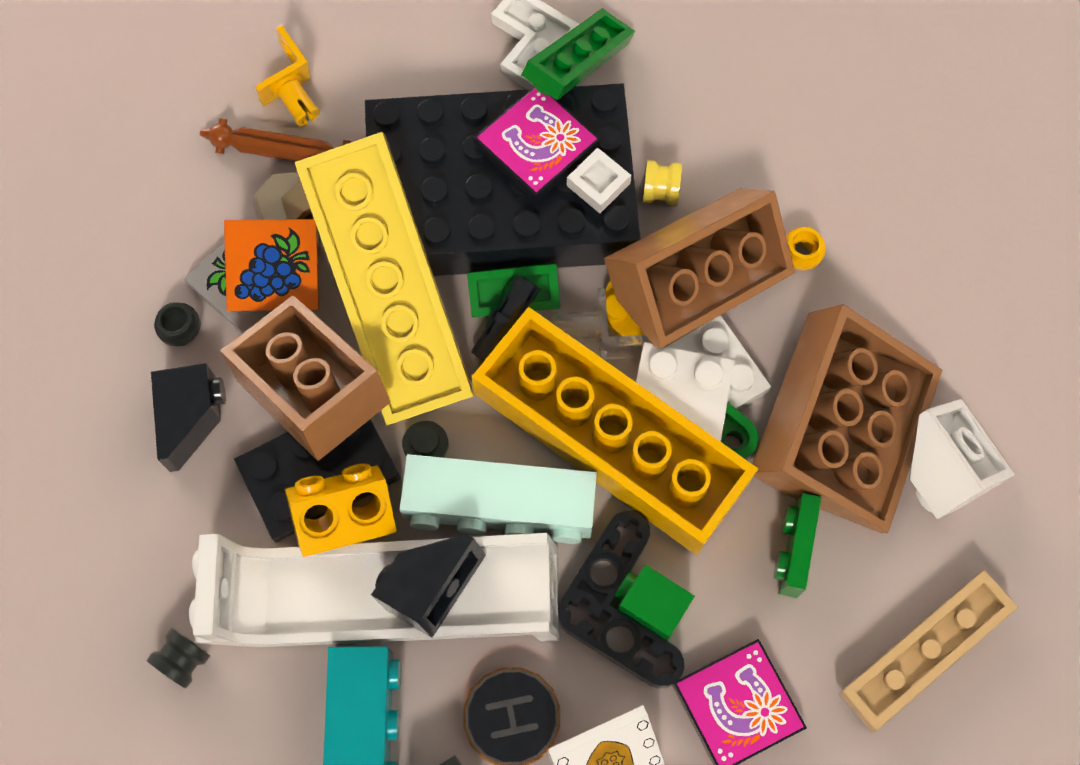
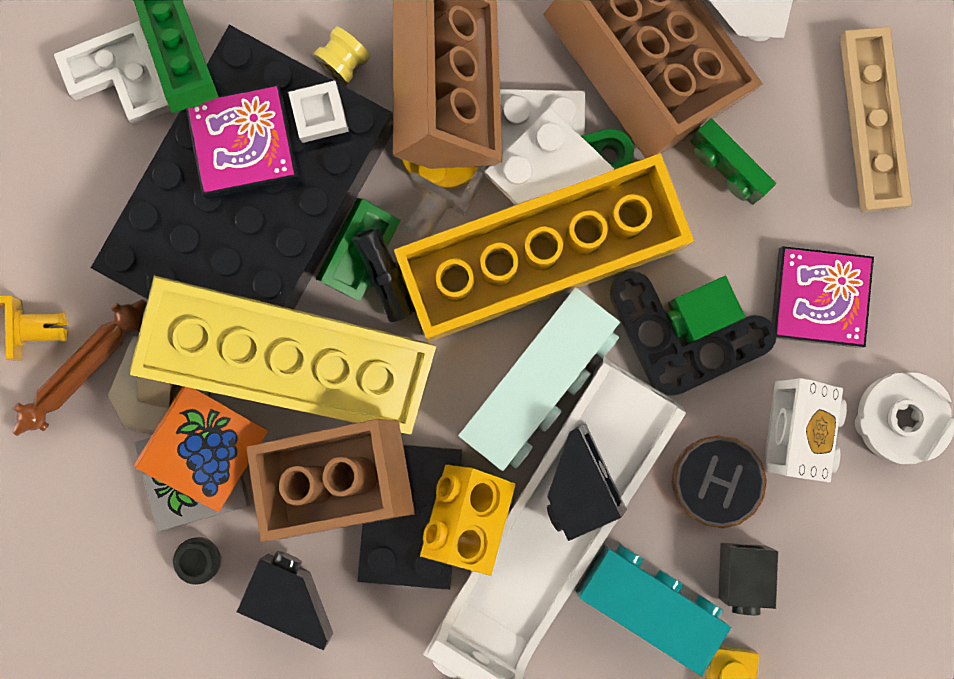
camera: 55 degrees left, 15 degrees up
(425, 439) = (447, 411): pearl dark grey plate -> none

